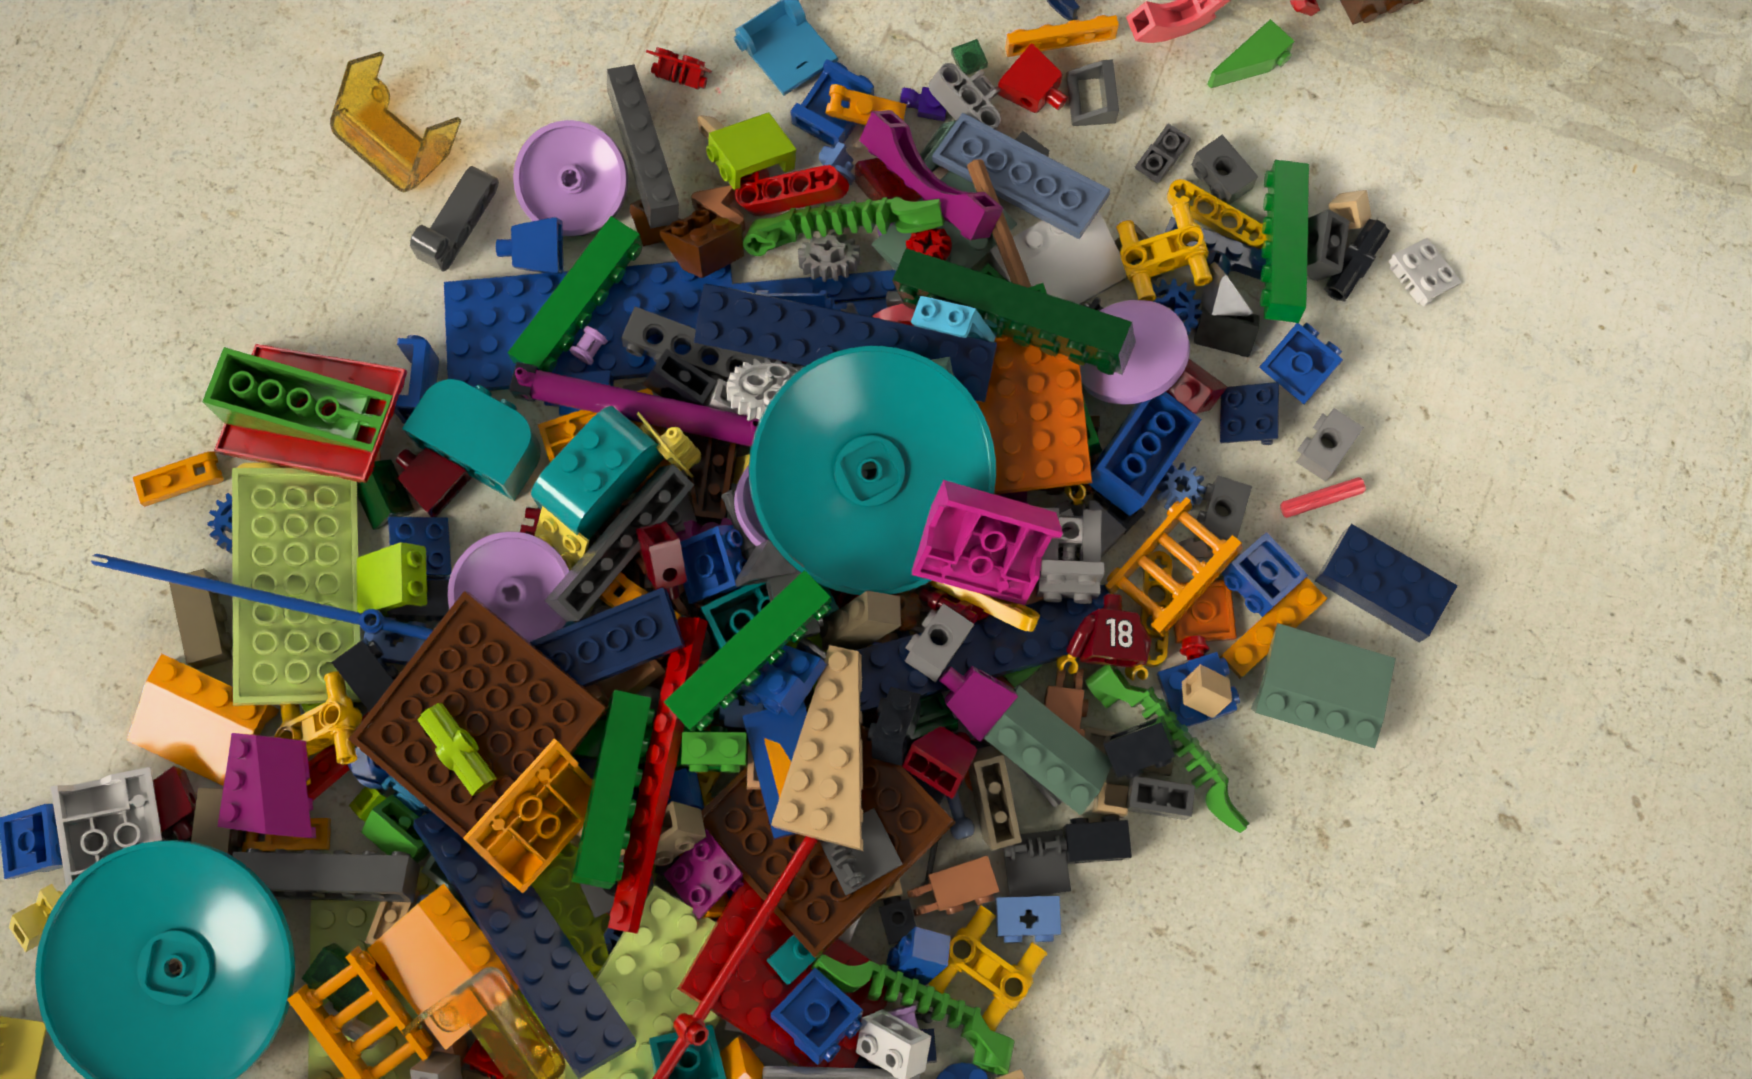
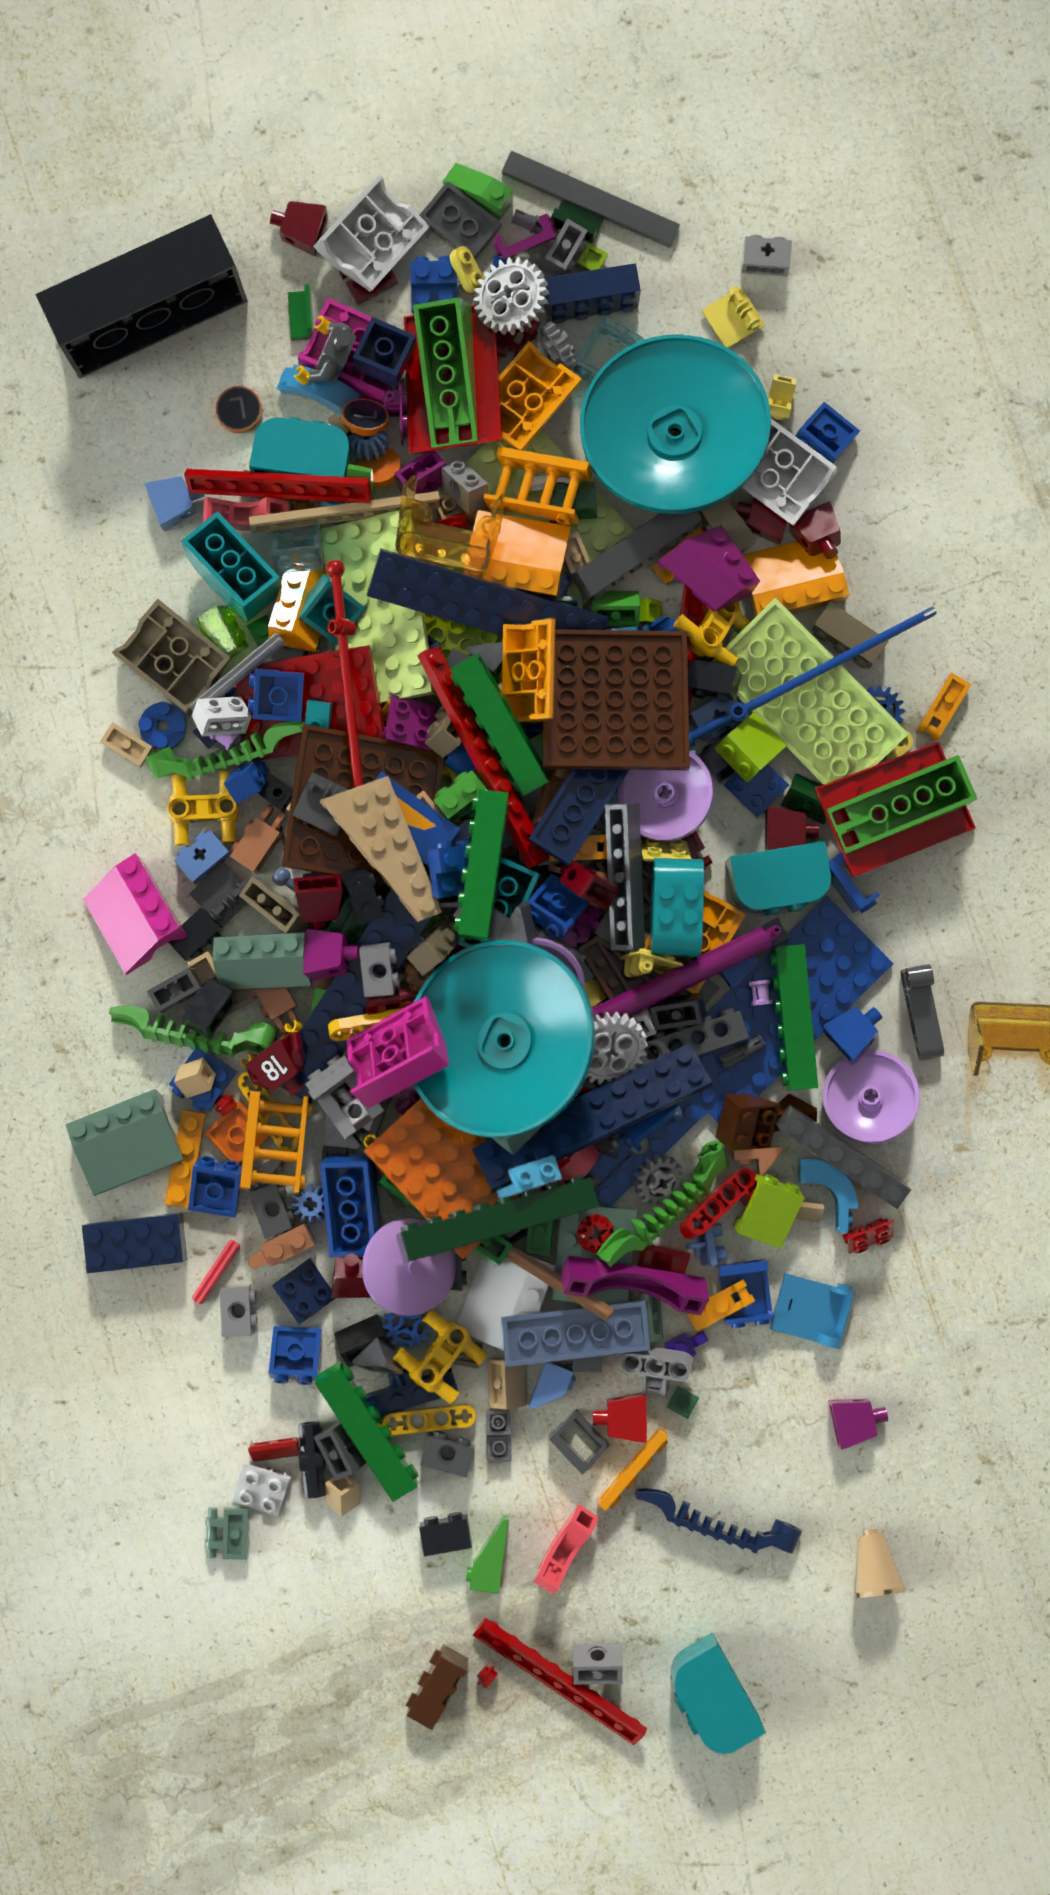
camera: 140 degrees right, 10 degrees up
(132, 744) = (818, 531): none -> dark red torso
(456, 749) = (612, 673): lime piece -> none
(558, 879) = (490, 653): none -> flat silver slope
(658, 306) = (742, 1052): none -> dark grey axle
(680, 156) = (836, 1182): none -> dark azure arch
(1082, 154) = (552, 1384): none -> medium blue slope
(1126, 186) = (506, 1385): none -> tan panel
(1146, 911) = (133, 913): none -> piece
(1240, 465) = (283, 1247): none -> nougat hinge
(1279, 105) = (445, 1534): none -> black brick
(1385, 298) = (274, 1449): none -> red slope
(1480, 249) = (235, 1533): none -> sand green plate

